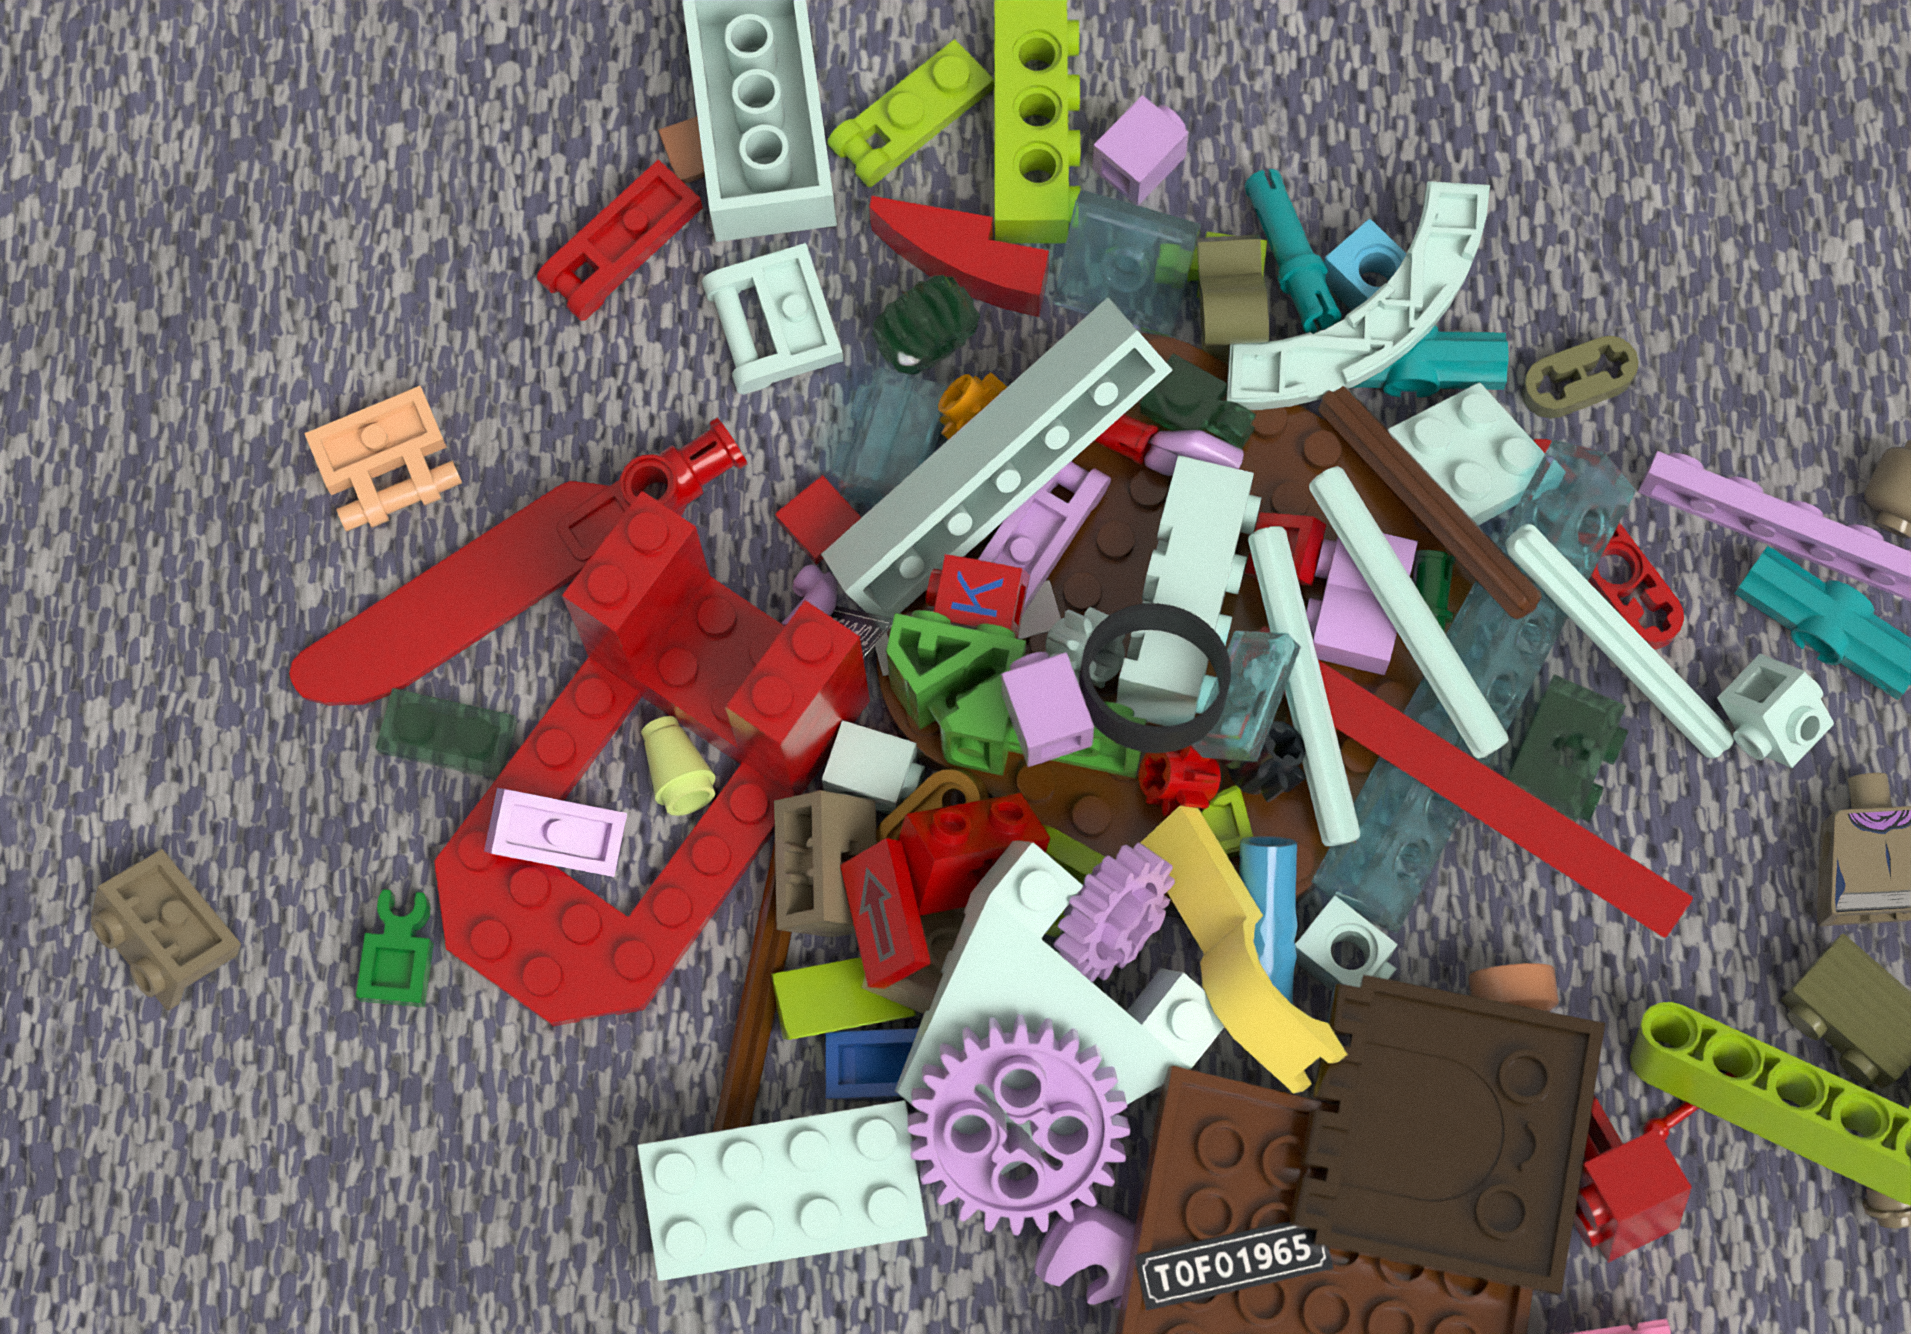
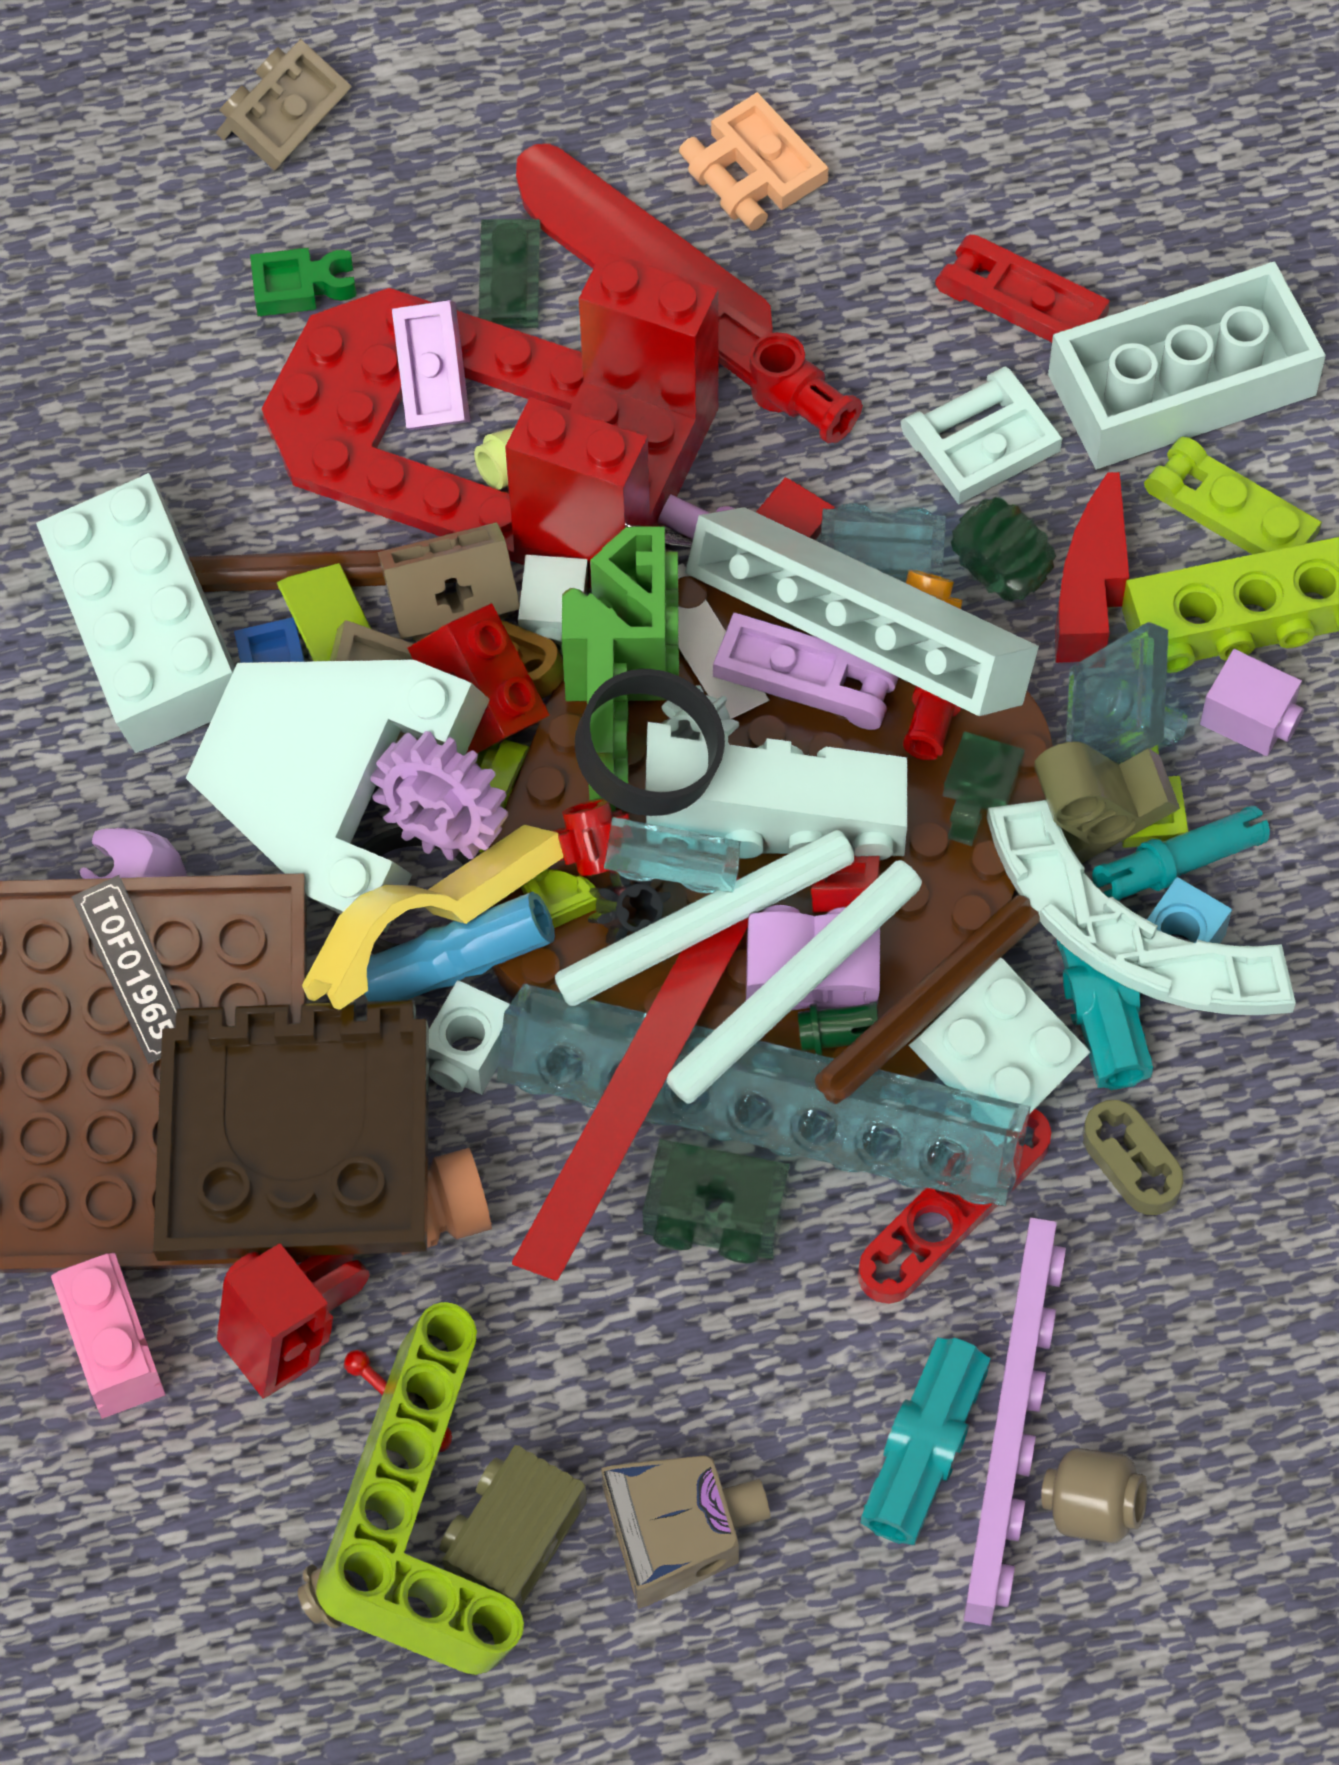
camera: 75 degrees right, 10 degrees down
(885, 914) = (399, 615): red tile -> none
(972, 1162) = (222, 770): lavender gear -> none
(978, 593) = (716, 617): red brick -> none
(1046, 707) = (591, 649): lavender brick -> none
(1191, 444) = (931, 789): lavender arm -> none
(1619, 641) = (831, 1208): light aqua axle -> none
(1775, 711) = (808, 1389): light aqua brick -> none

